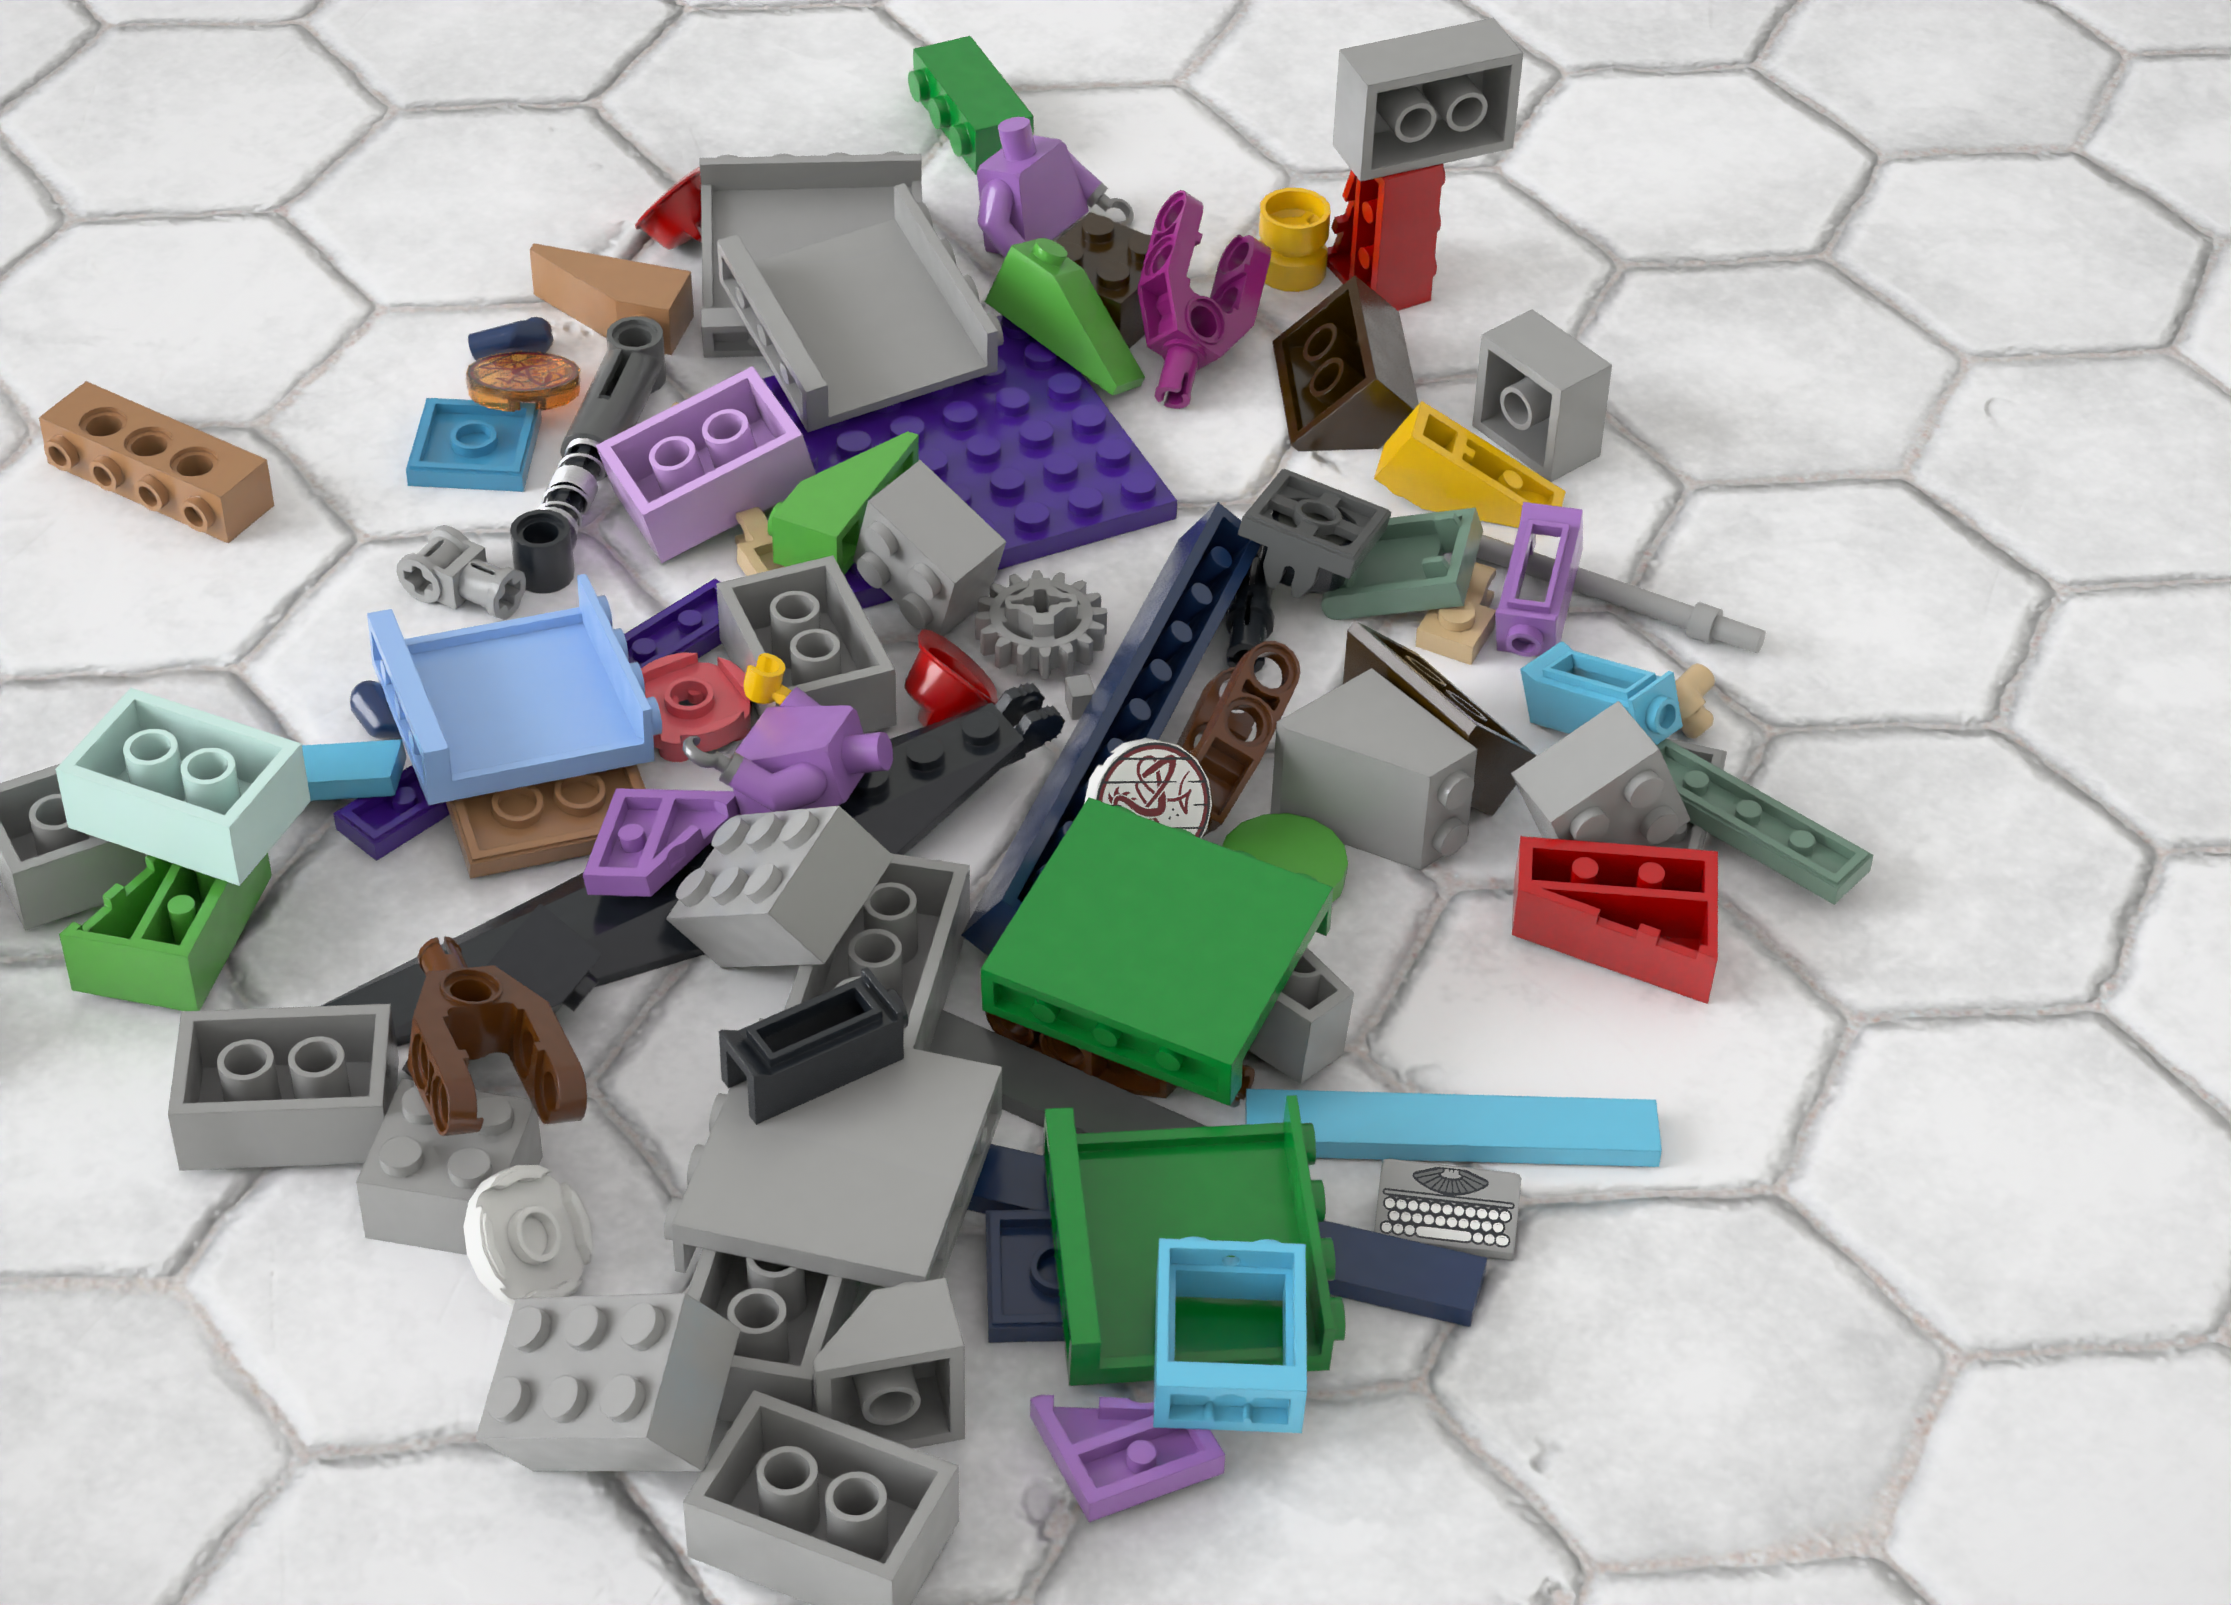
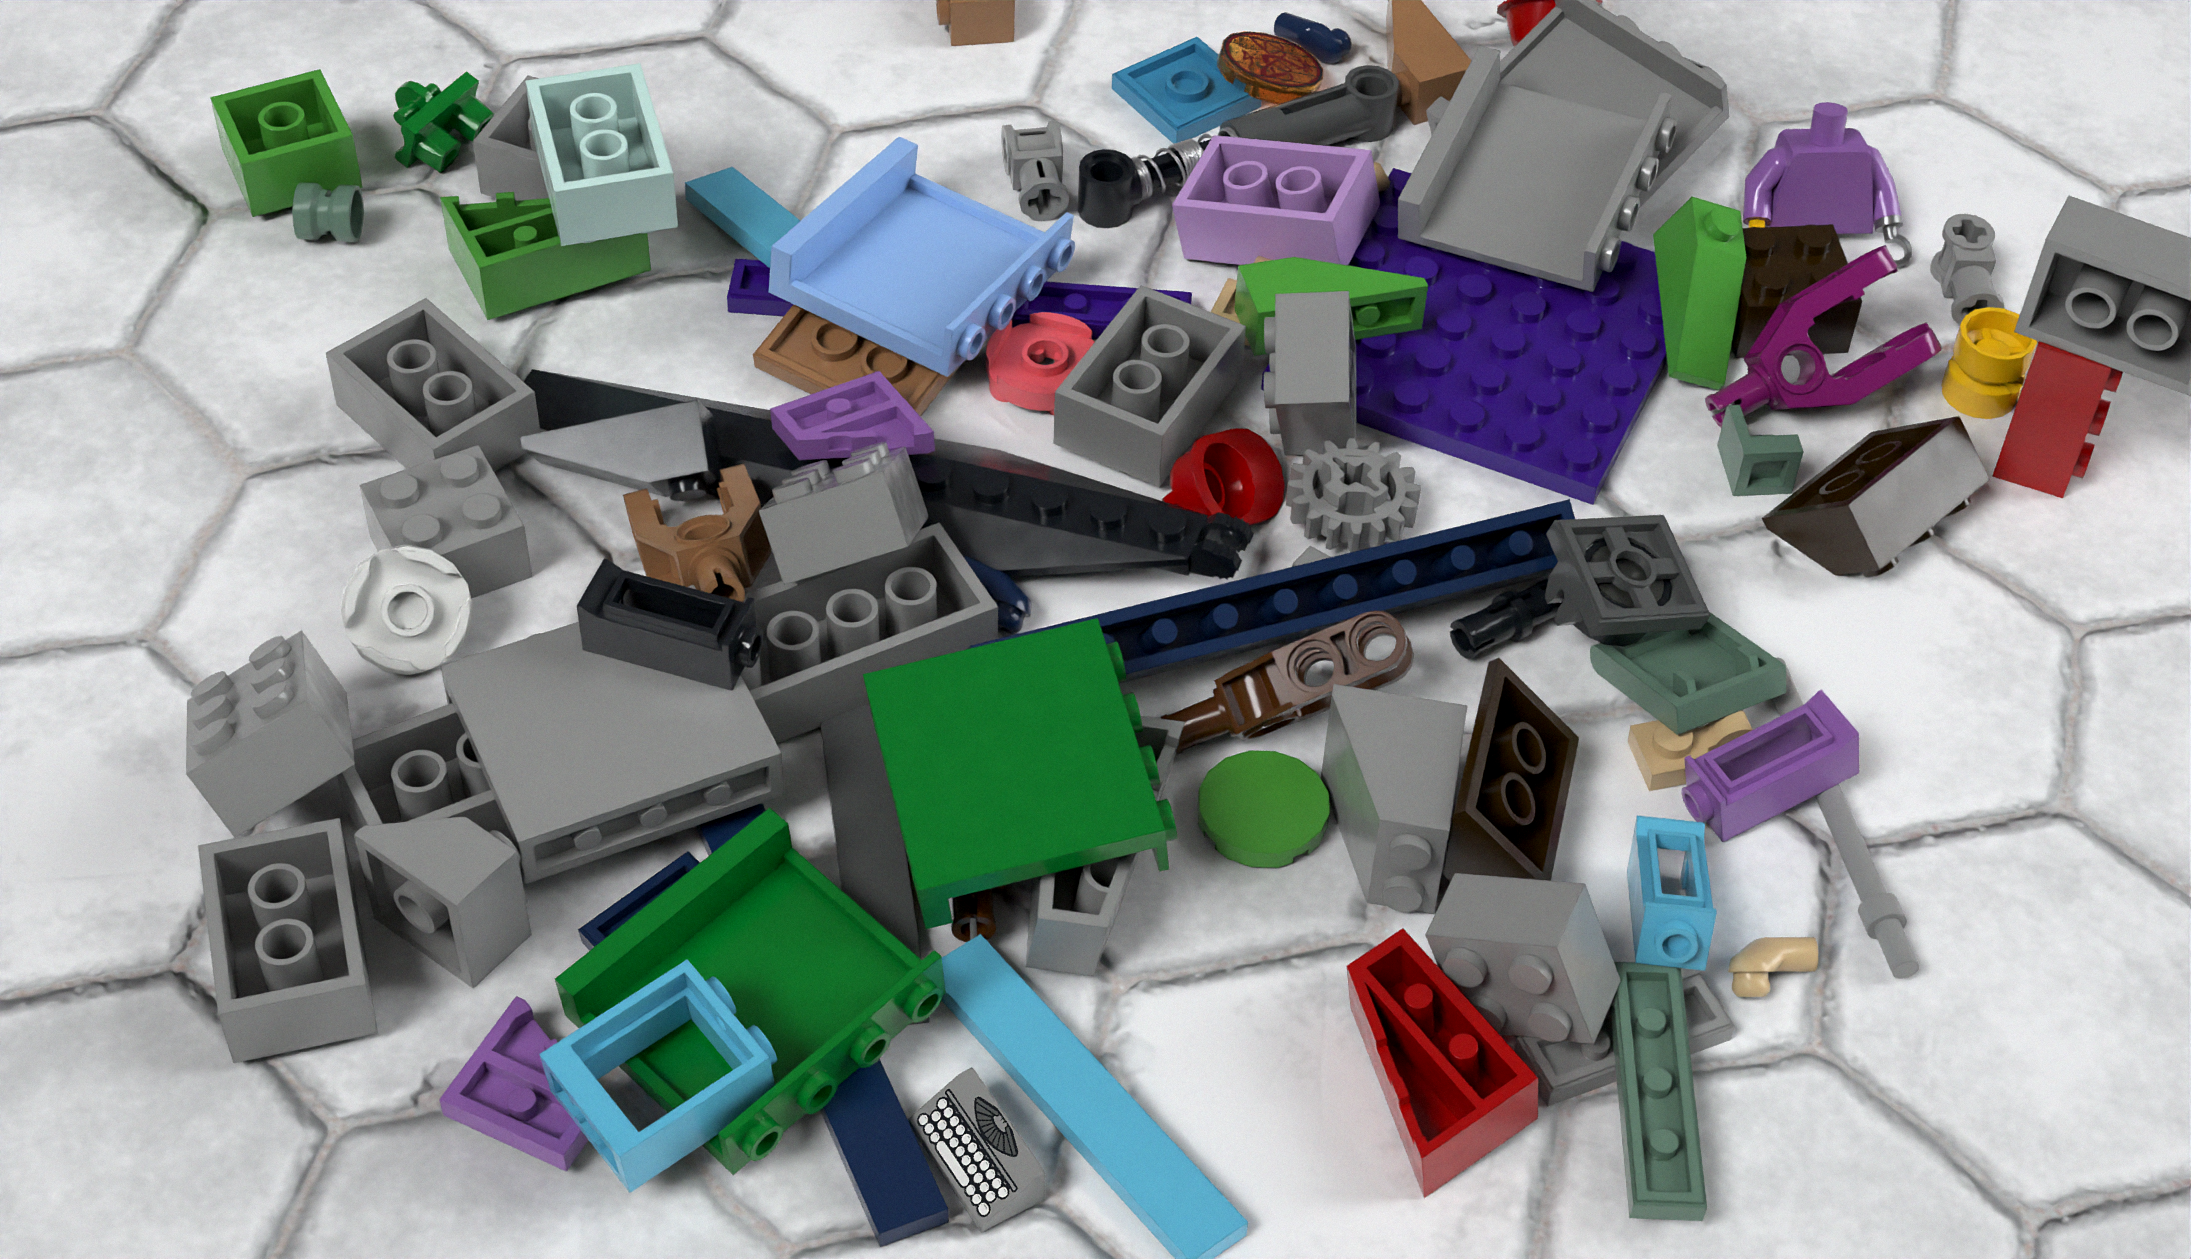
camera: 50 degrees right, 5 degrees up
(479, 1013) = (543, 426): reddish brown piece -> none
(684, 1030) = (708, 551): none -> medium nougat piece
(794, 752) = (998, 440): medium lavender torso -> none
(964, 97) = (1896, 86): green brick -> none
(1155, 783) = (1179, 664): tile -> none
(1221, 207) = (1966, 265): none -> light grey connector
(1238, 412) = (1757, 461): none -> sand green panel
(1453, 469) = (1851, 646): yellow slope -> none
(1541, 395) = (1998, 628): light grey brick -> none

